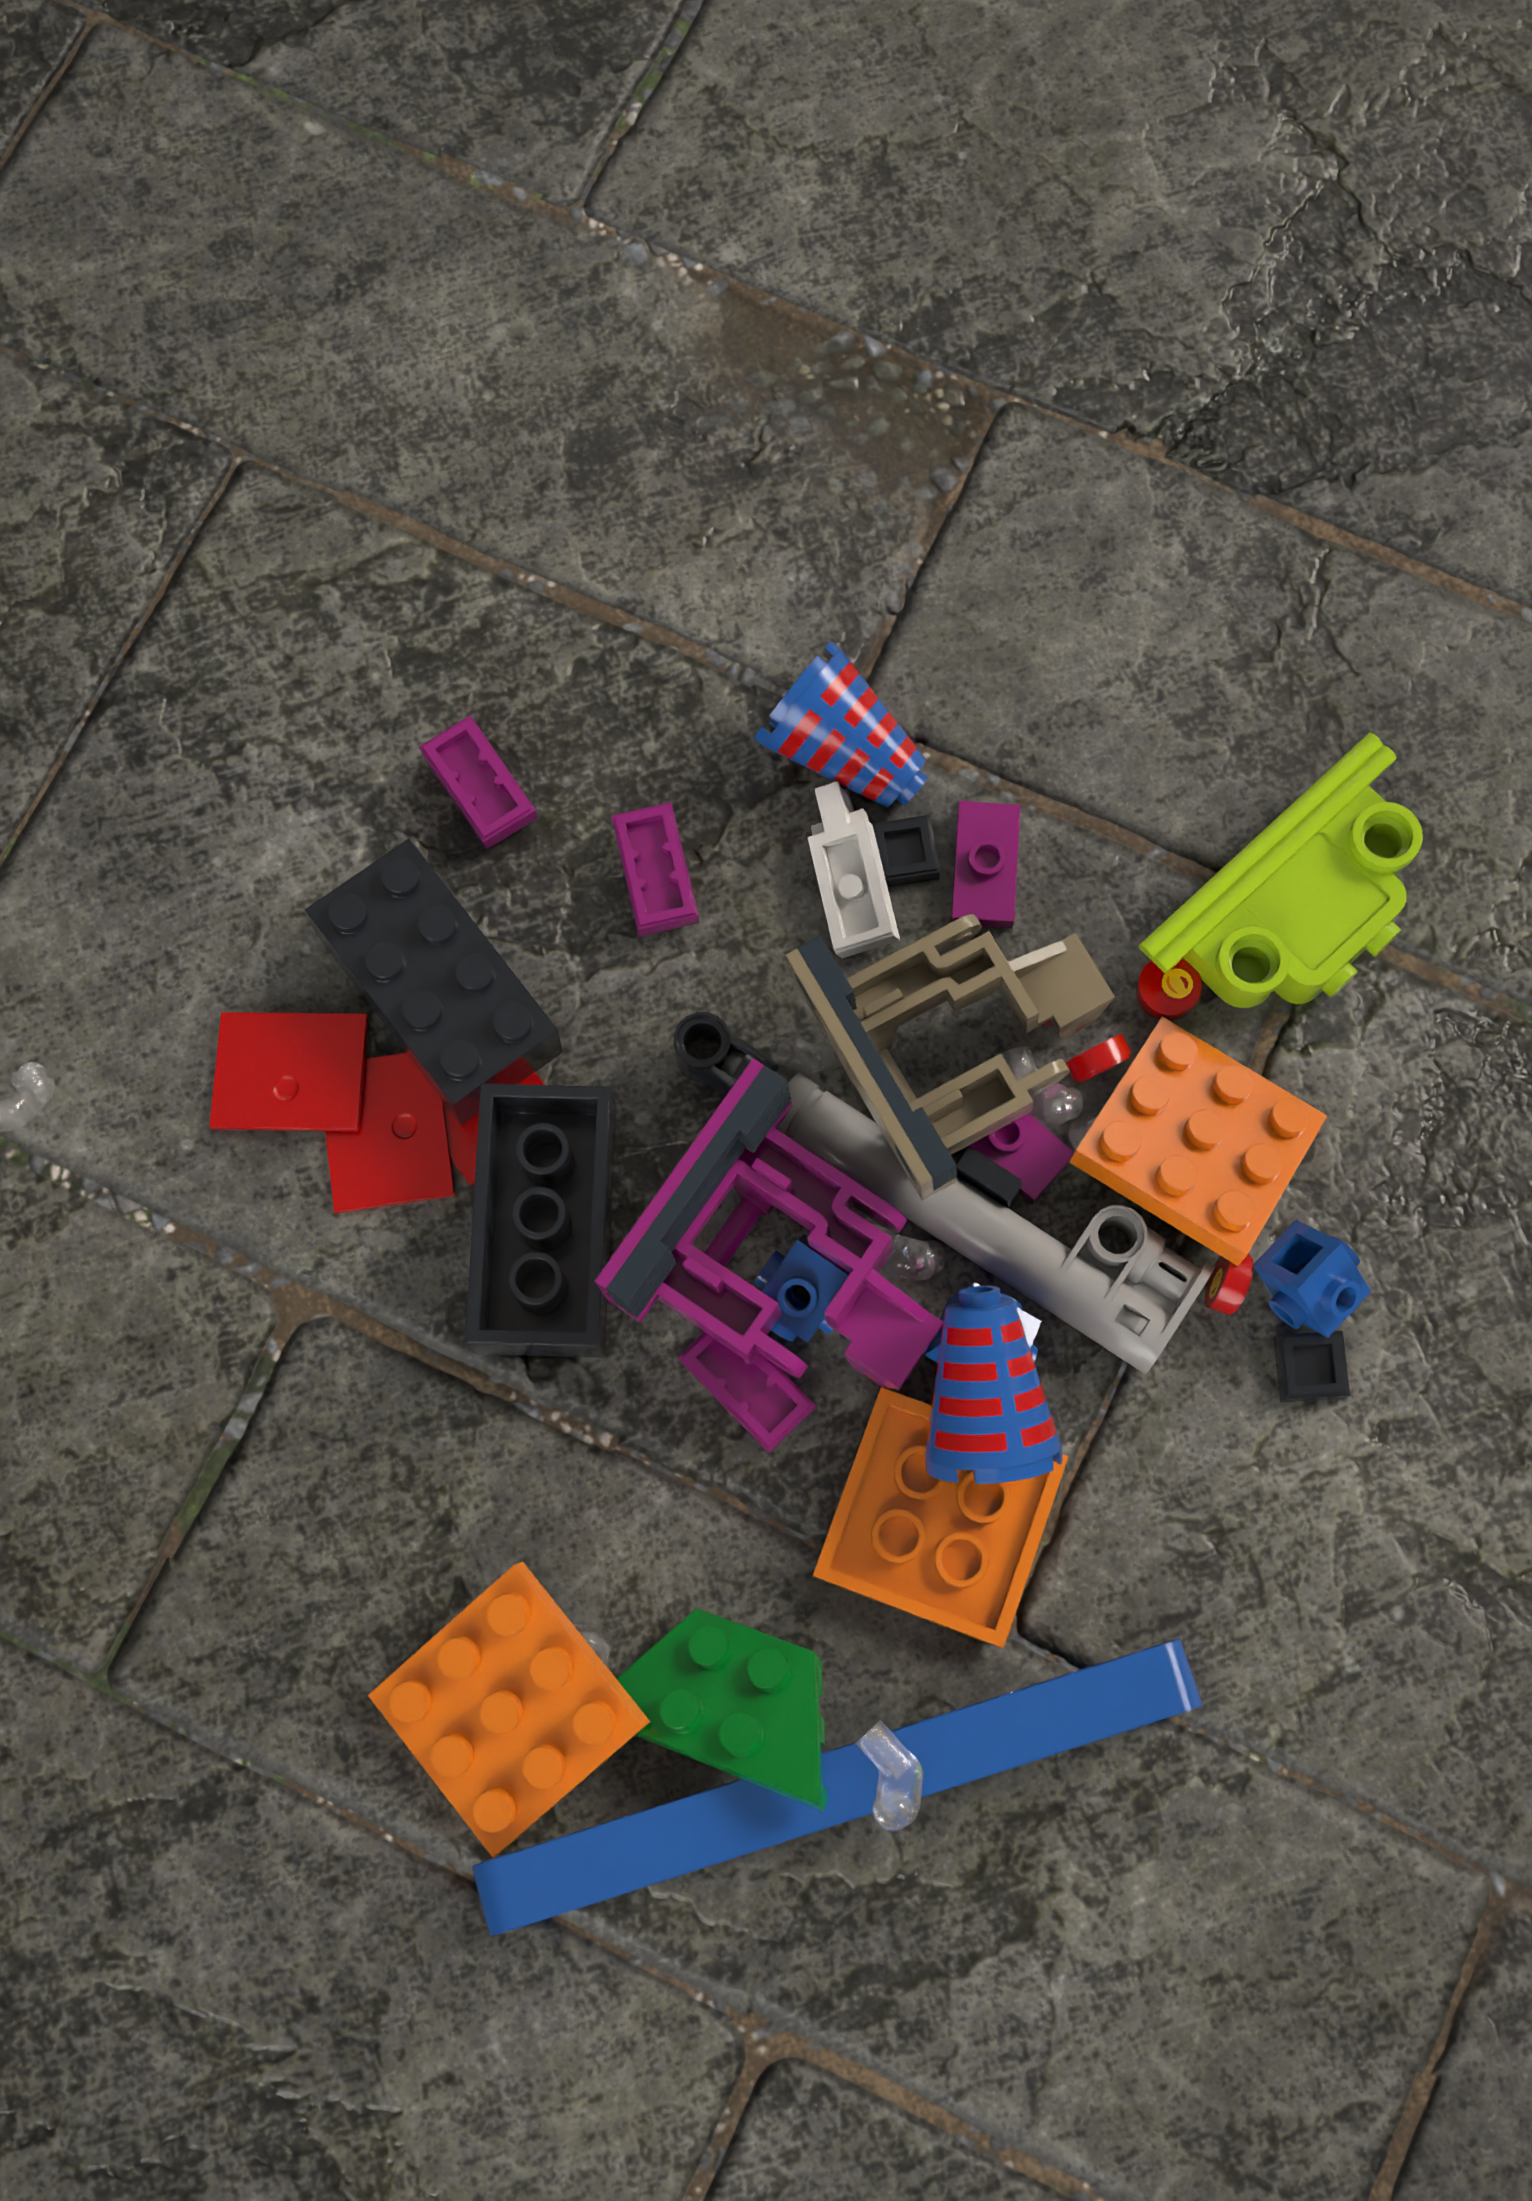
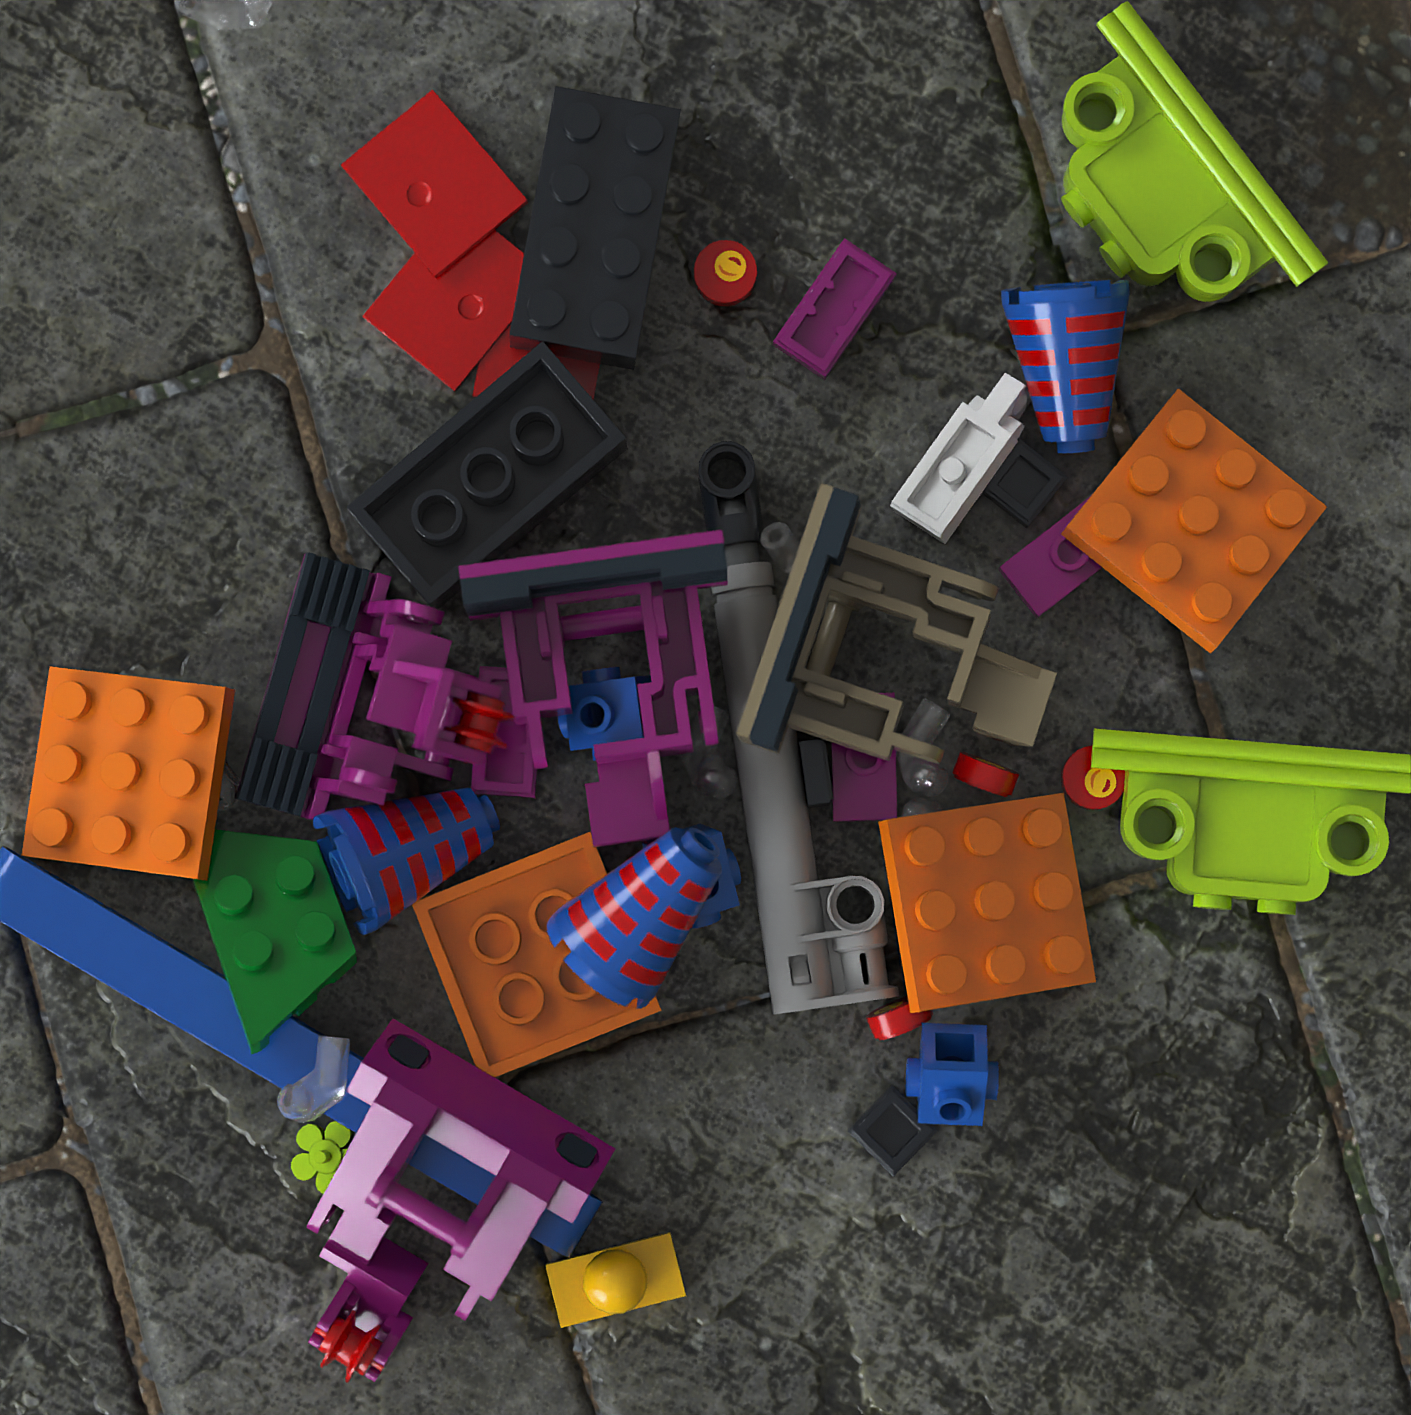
camera: 45 degrees right, 10 degrees up
(478, 782) = (781, 111): magenta plate -> none
(549, 1452) = (328, 637): none -> magenta container
(555, 923) = (725, 273): none -> red tile
(764, 1545) = (402, 849): none -> blue cone
(781, 562) = (1169, 178): none -> lime brick
(951, 1829) = (324, 1152): none -> lime plant
(978, 1698) = (432, 1092): none -> magenta container
(1043, 755) = (1194, 521): none -> orange plate
(1249, 1685) = (615, 1279): none -> yellow tile

